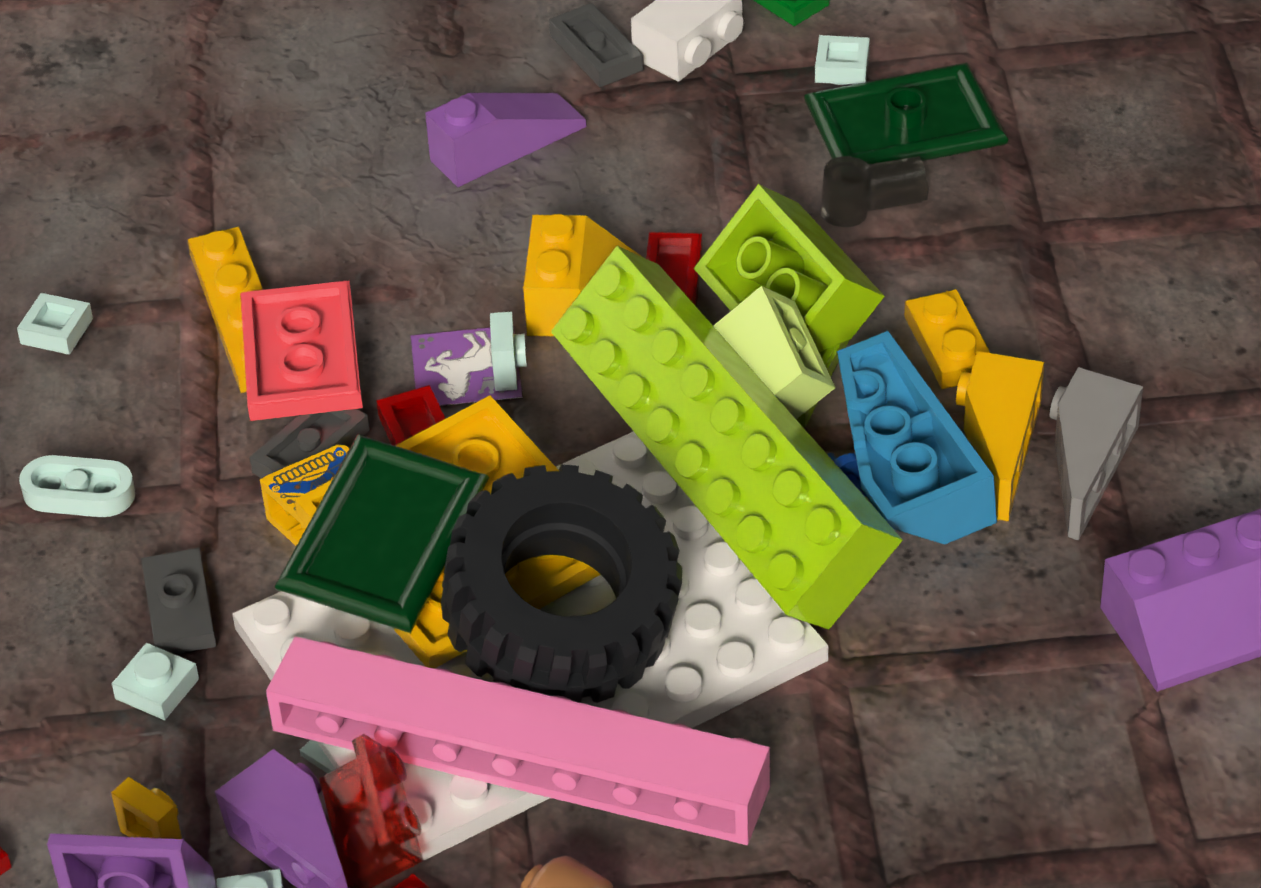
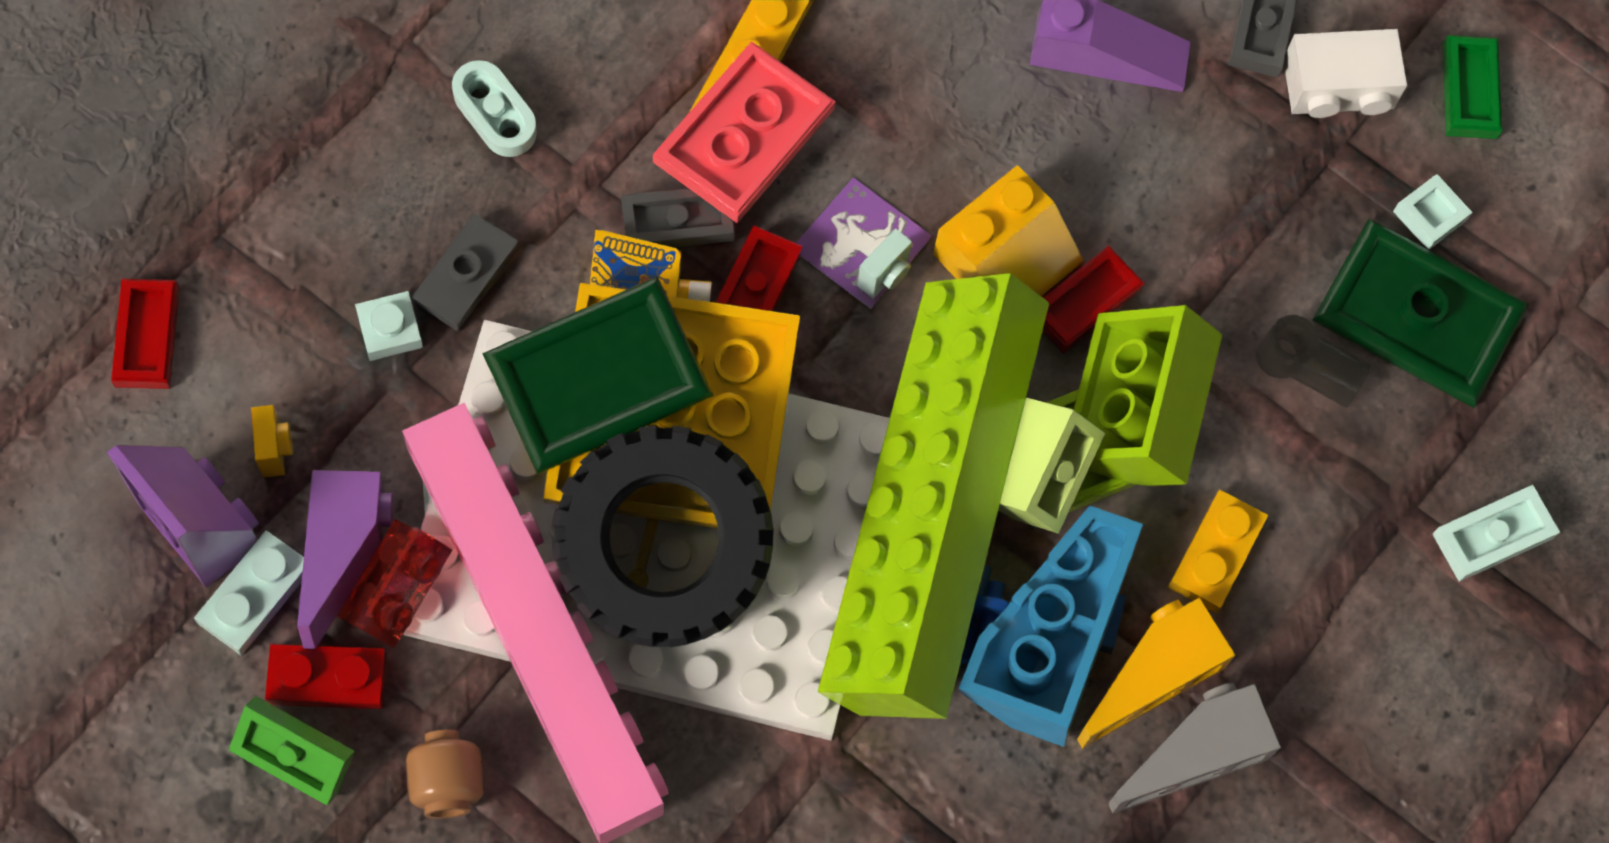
camera: 35 degrees right, 25 degrees up
(1113, 187) = (1496, 533): none -> light aqua plate

